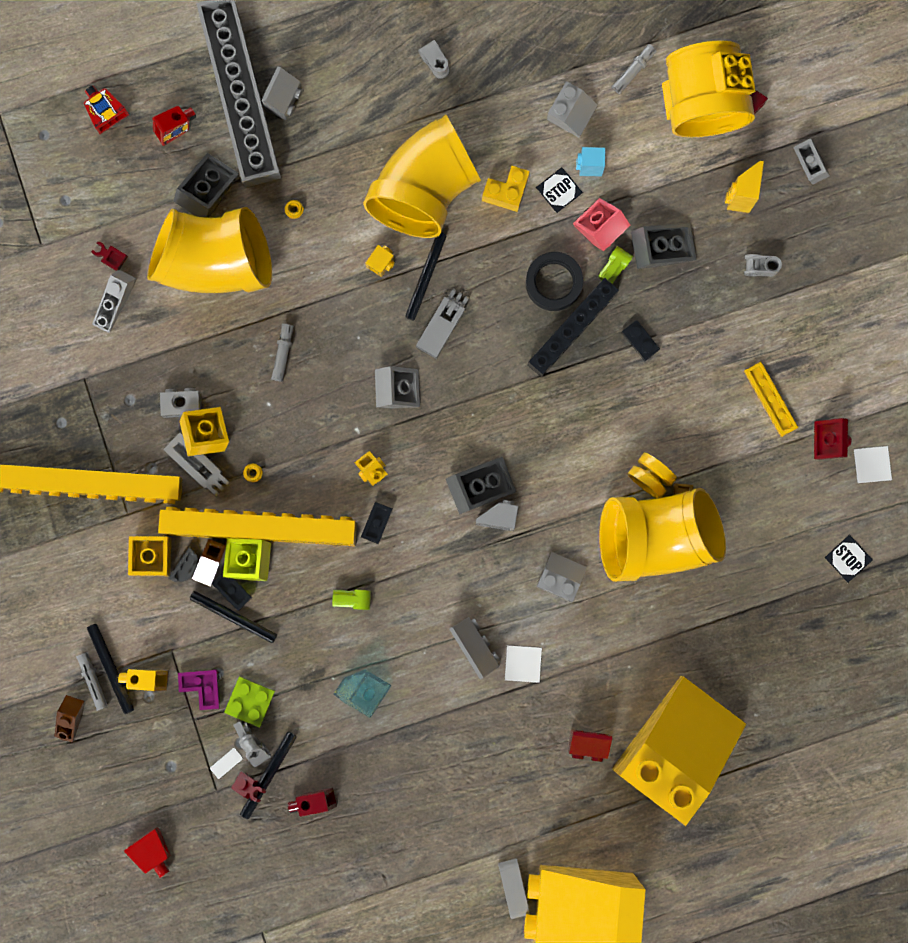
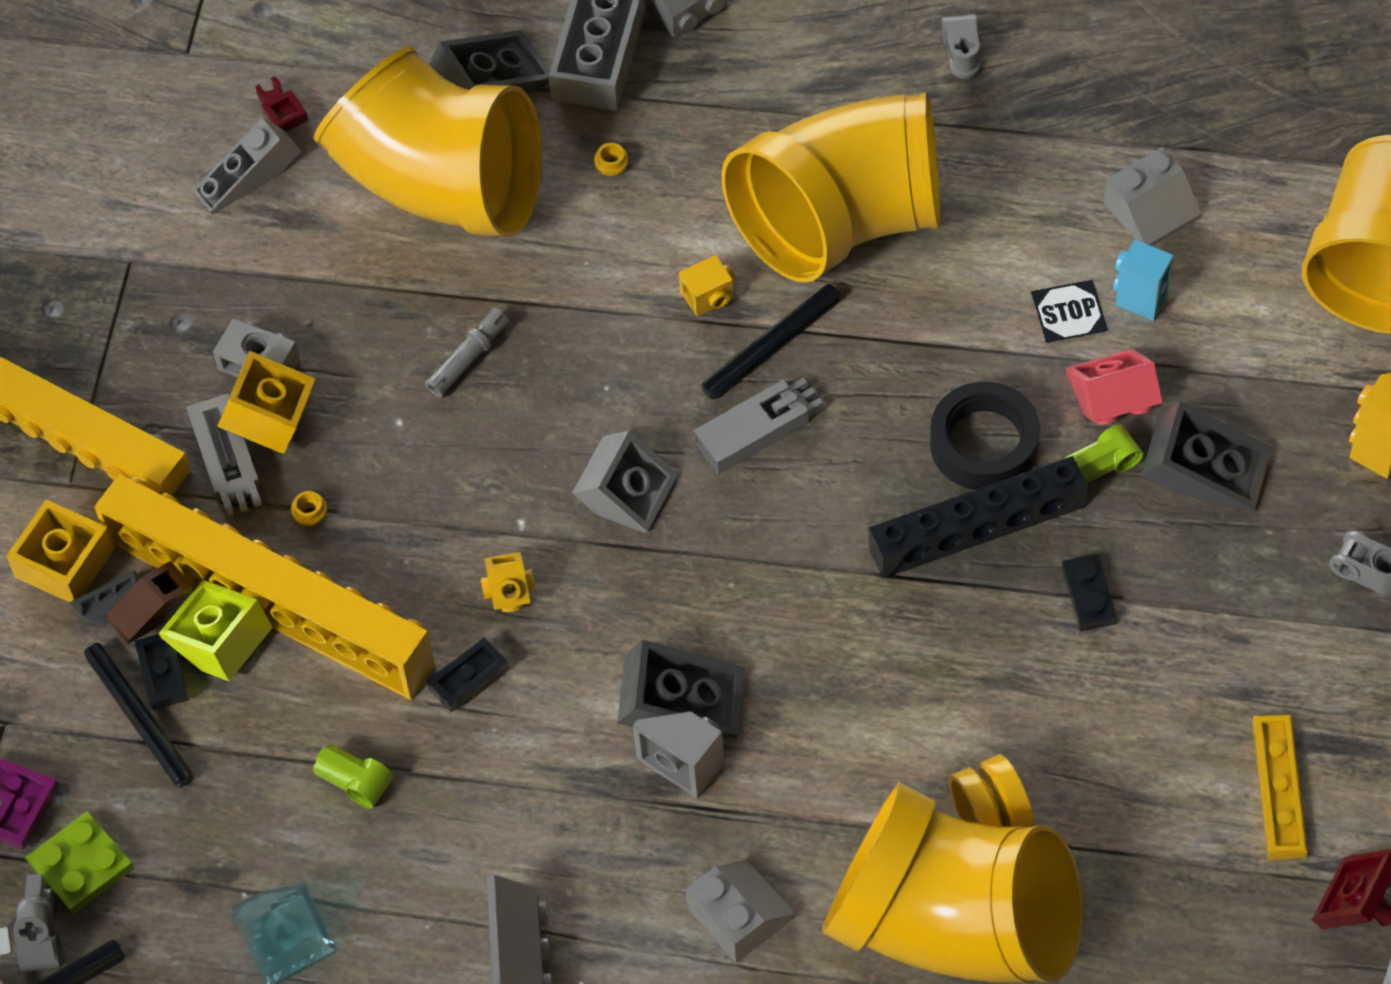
camera: 30 degrees right, 25 degrees down
(507, 194) = (976, 274): yellow brick -> none
(639, 62) = (1303, 180): light grey pin -> none

